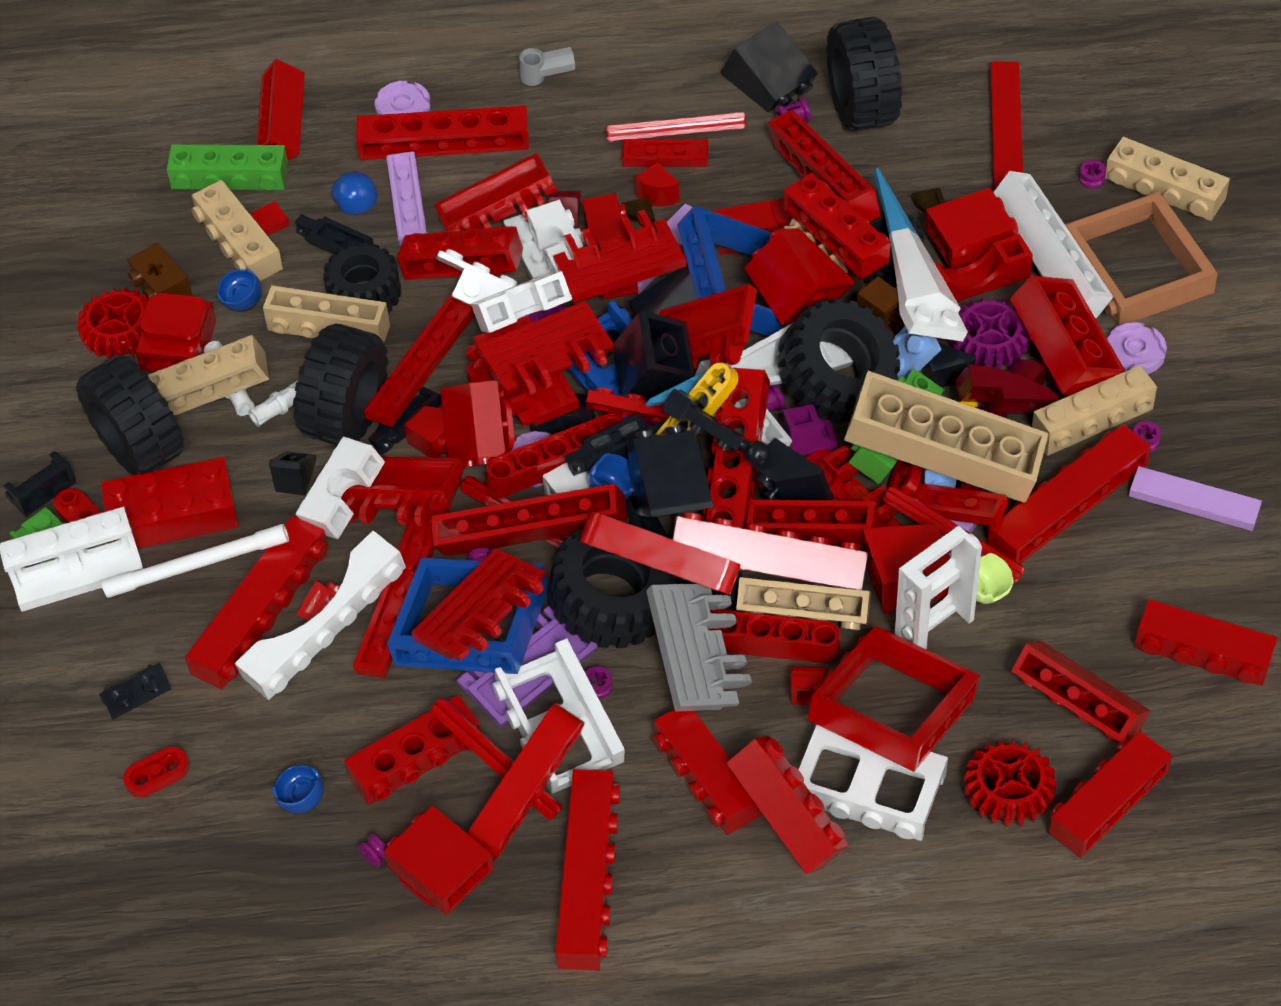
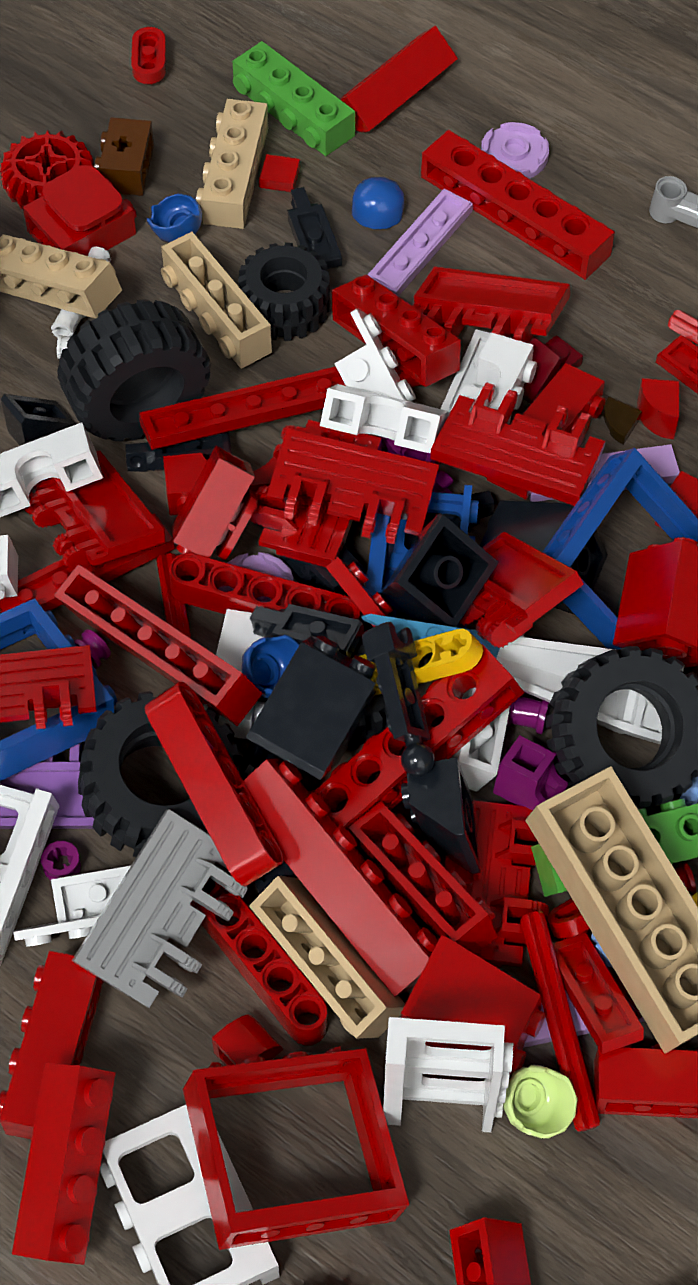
camera: 40 degrees right, 5 degrees up
(96, 207) = (148, 55): none -> red plate
(639, 687) = (78, 905): none -> white bracket

